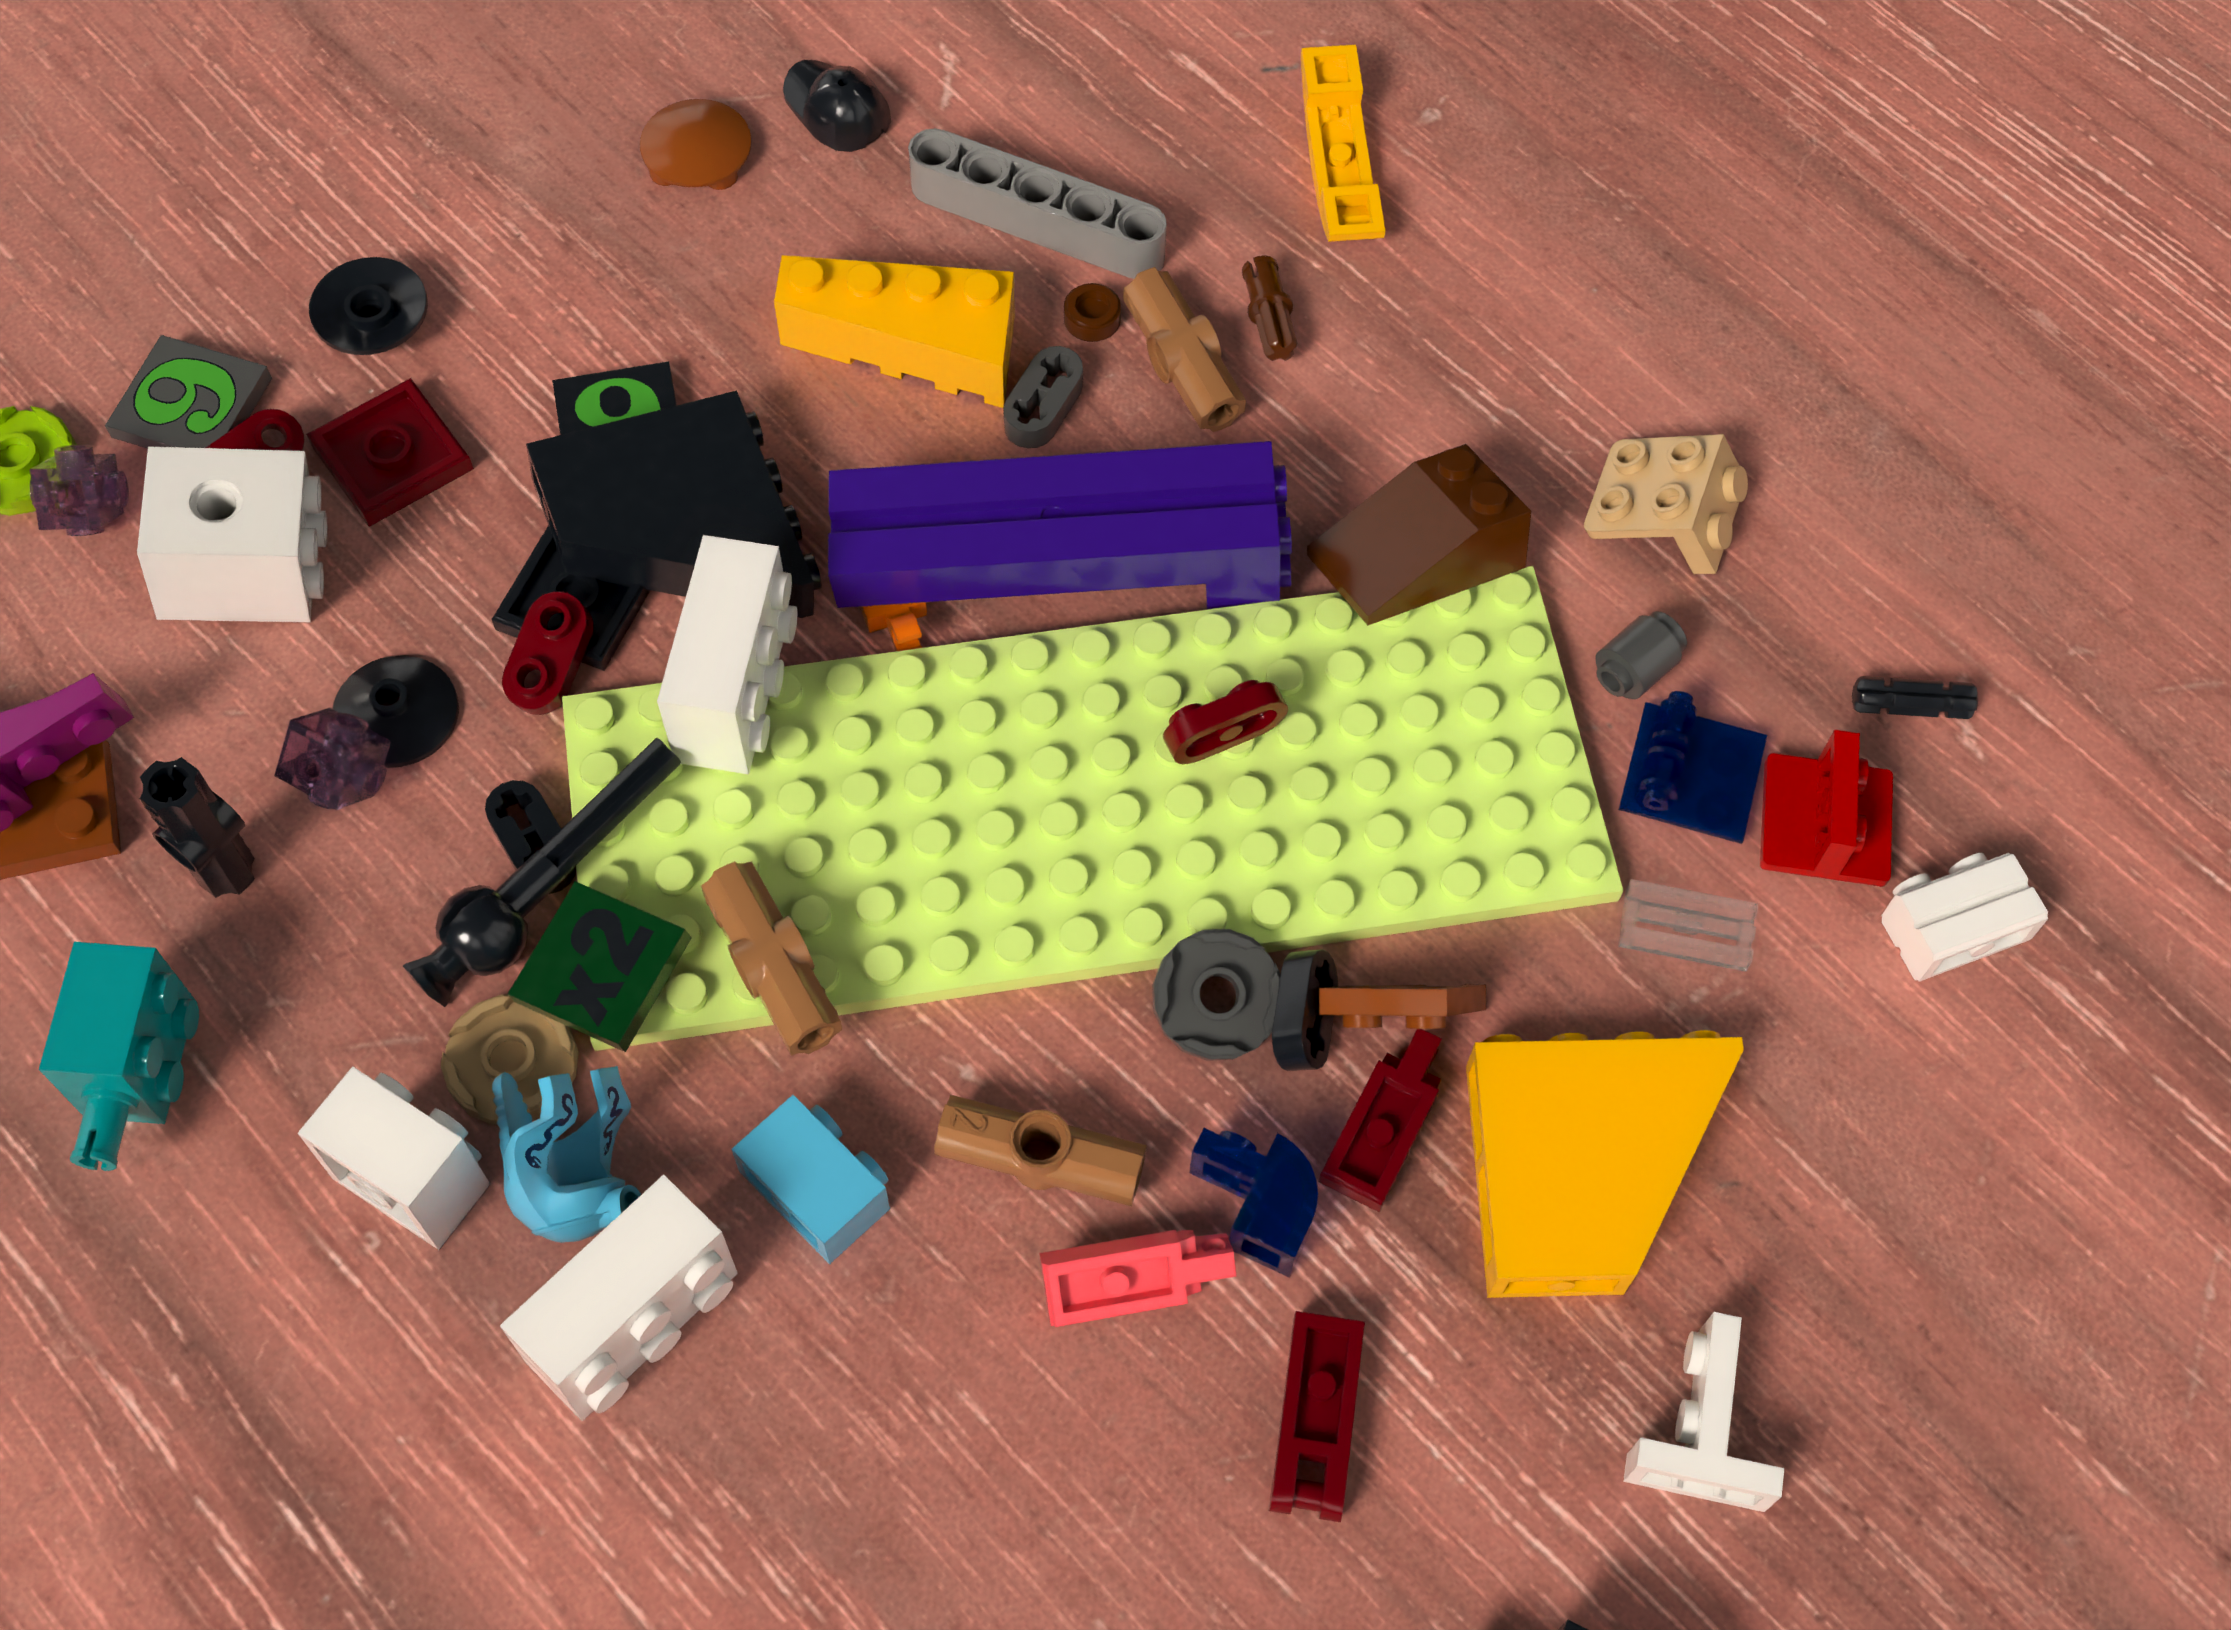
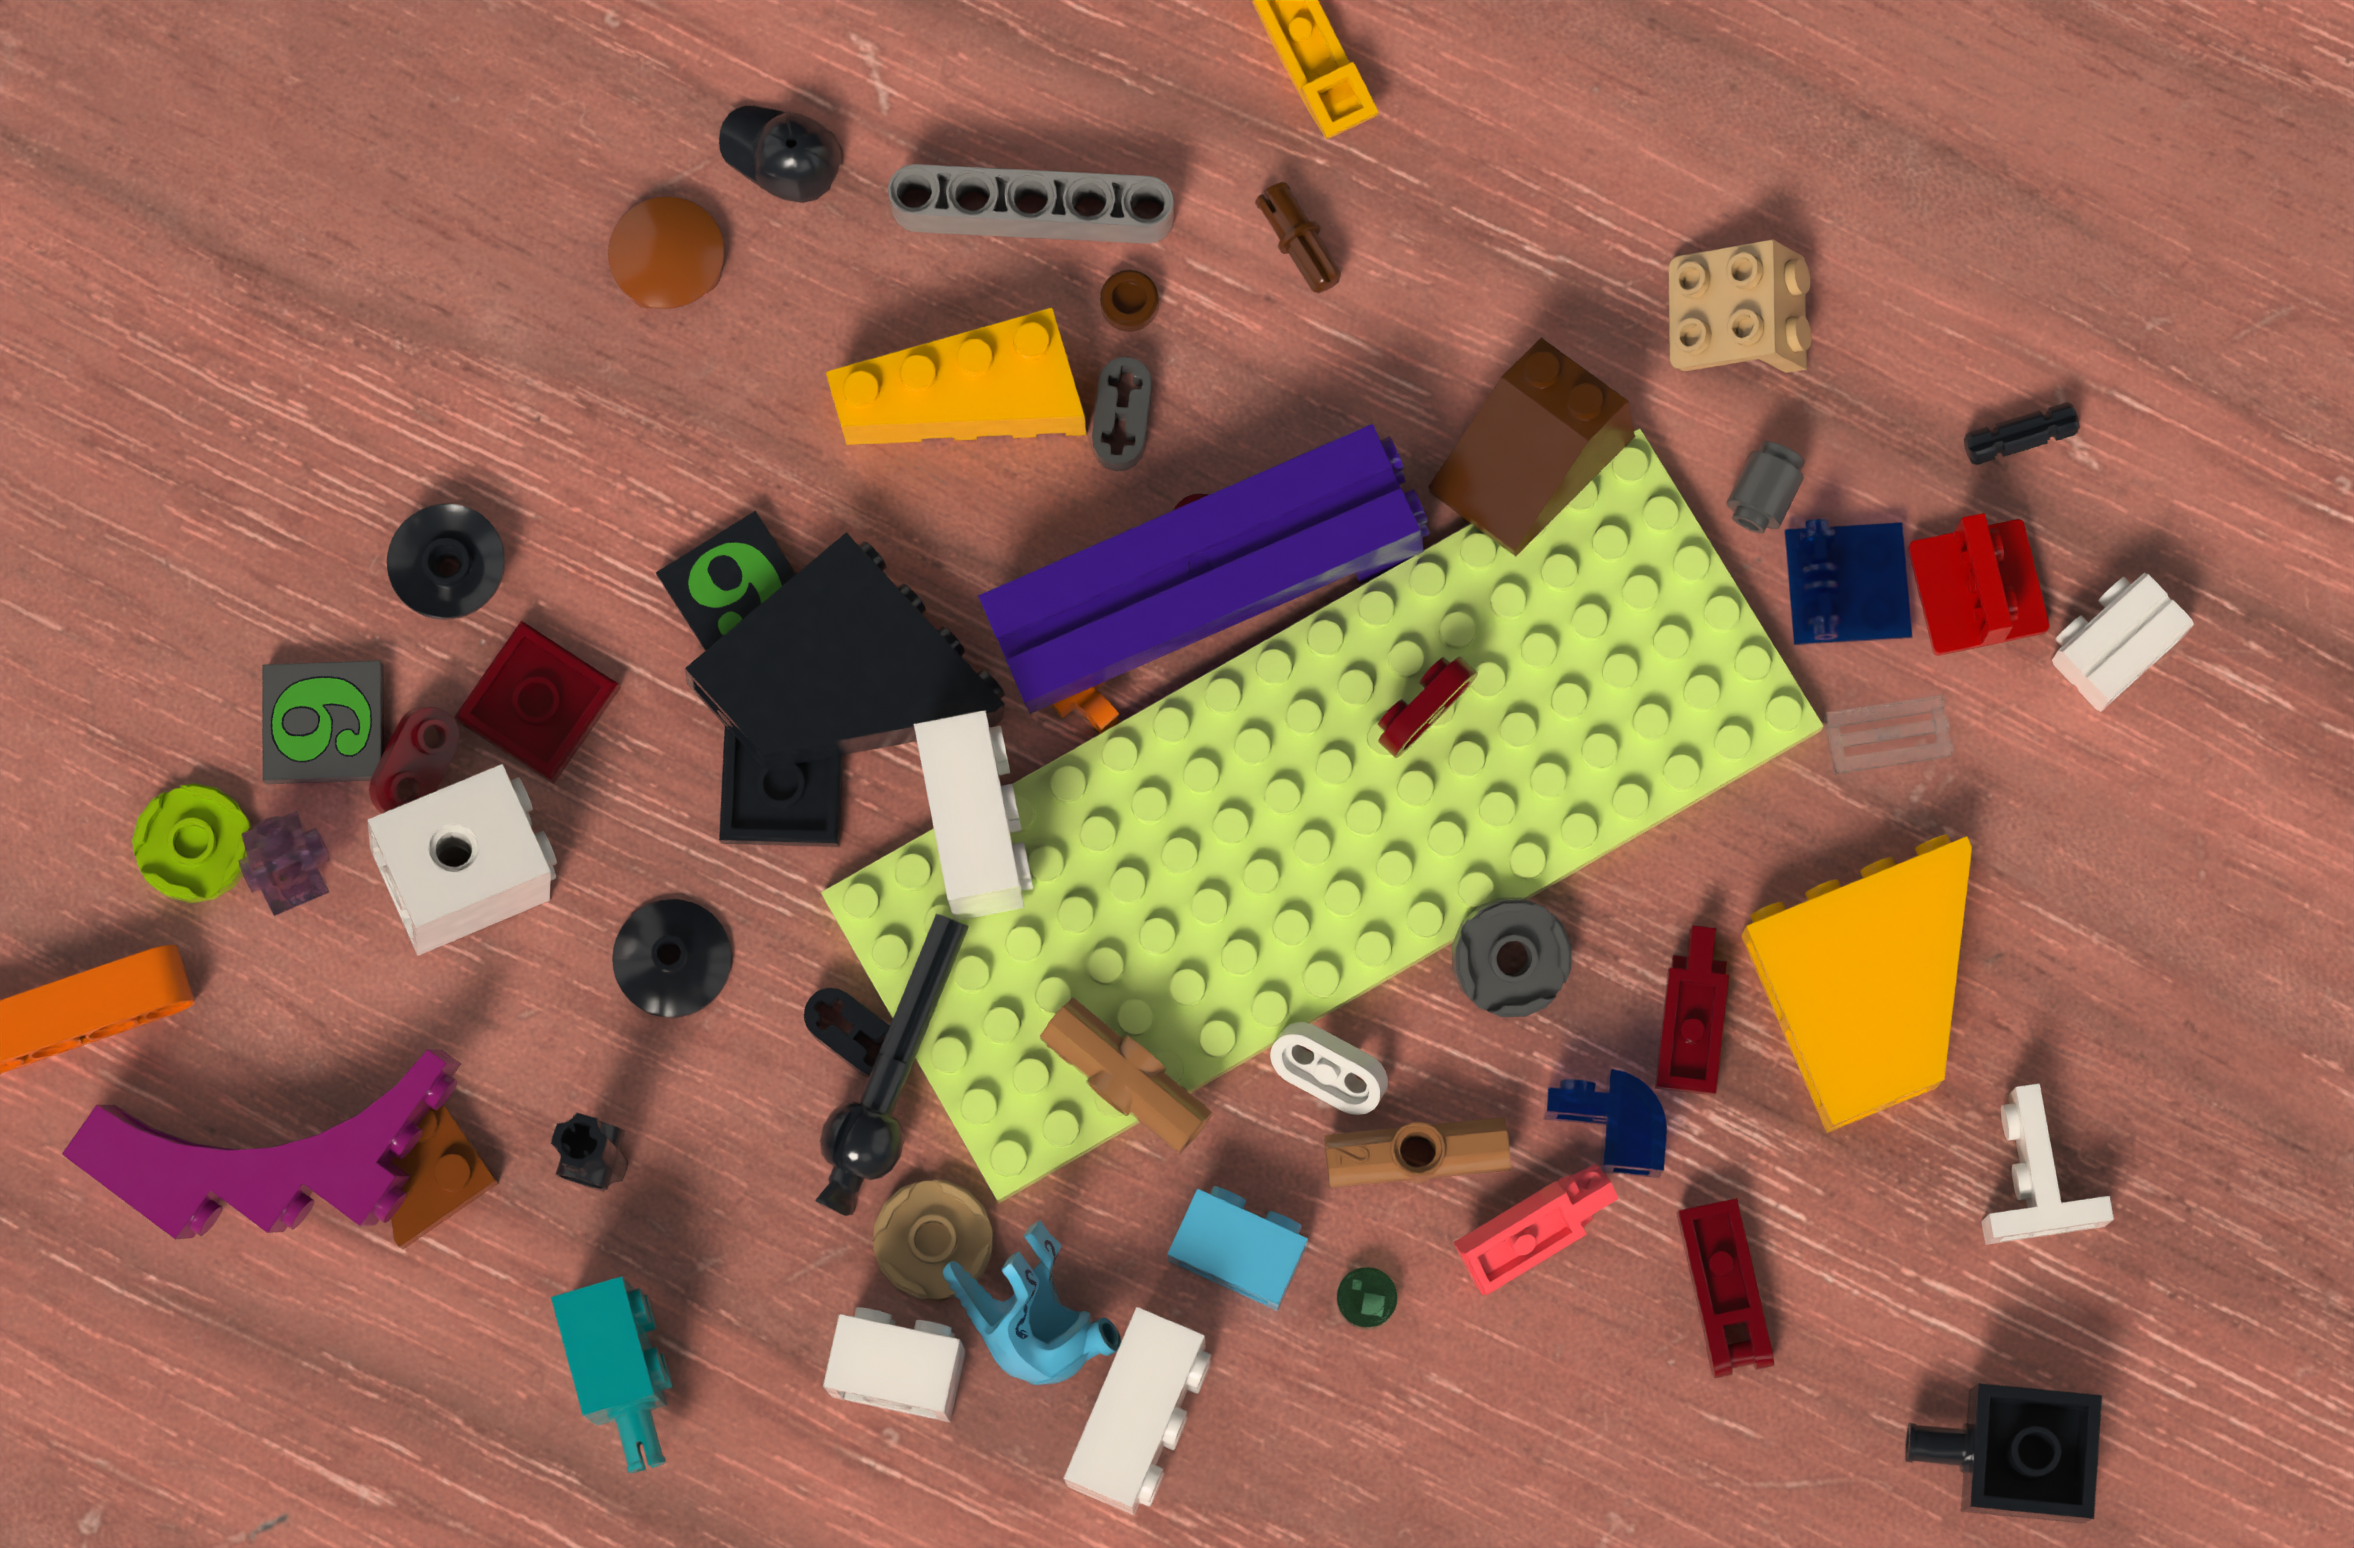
camera: 15 degrees left, 15 degrees up
(333, 758) = (655, 1033): brick -> none
(551, 651) = (789, 857): dark red plate -> none
(600, 966) = (981, 1135): dark green tile -> none
(927, 1284) = (1366, 1298): none -> clear green tile
(987, 1038) = (1329, 1068): none -> white plate
(1184, 349) = (1235, 315): medium nougat piece -> none
(1299, 1032) = (1590, 943): black beam -> none
(1421, 1004) = (1670, 908): dark orange wing -> none

